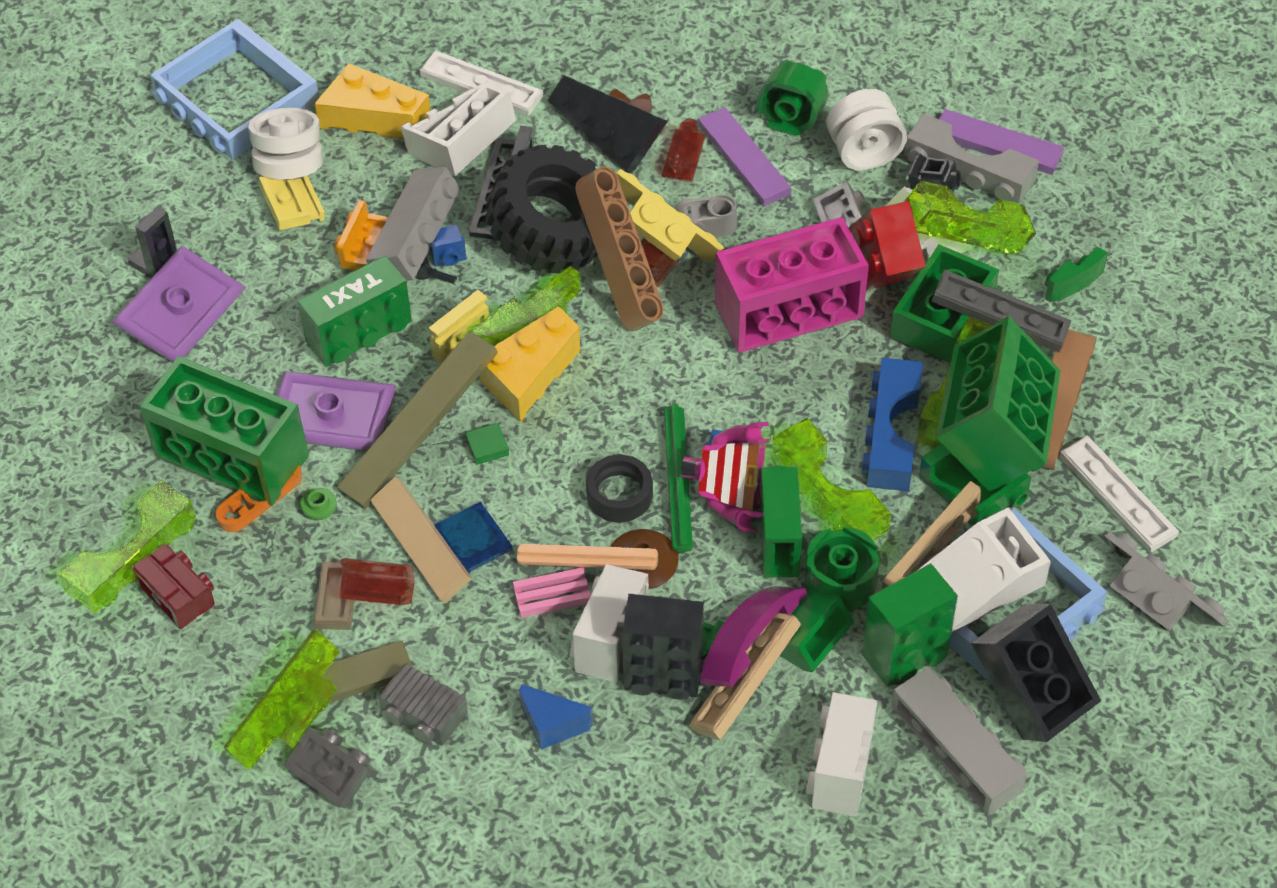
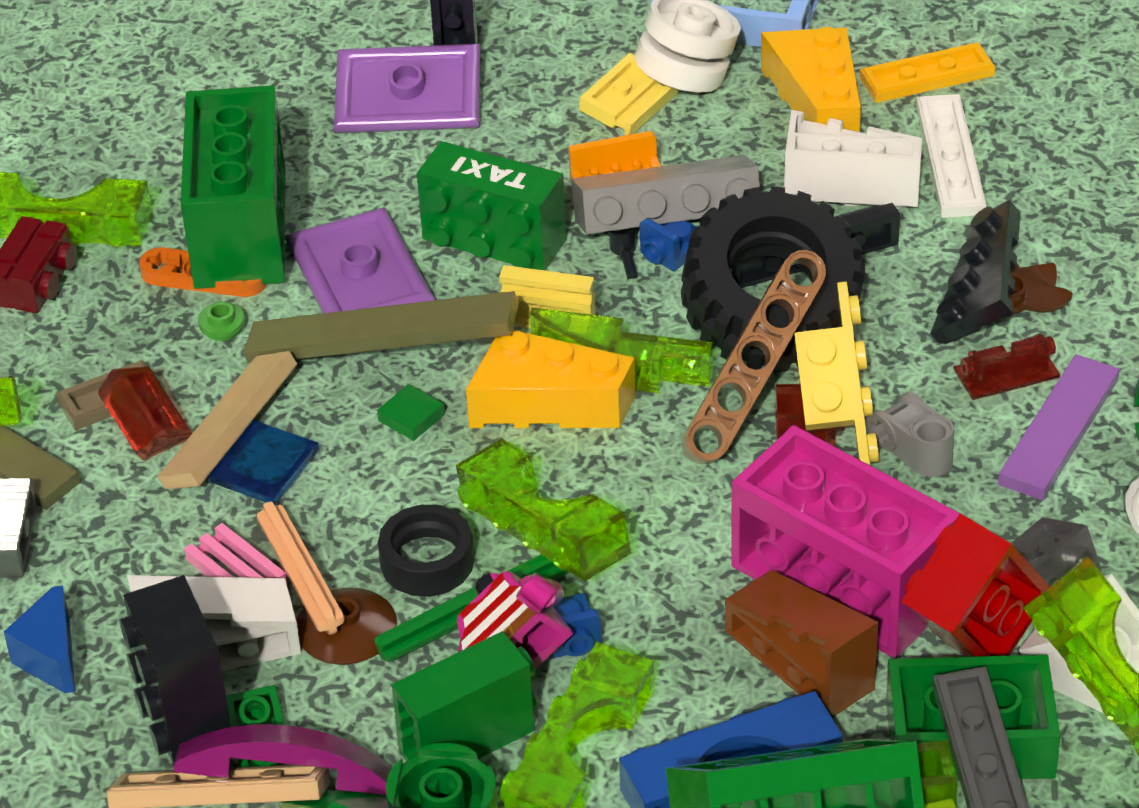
camera: 60 degrees right, 10 degrees down
(400, 49) = (927, 72): none -> yellow tile
(682, 405) = (573, 533): none -> clear neon green arch
(834, 343) = (805, 639): none -> dark orange wedge

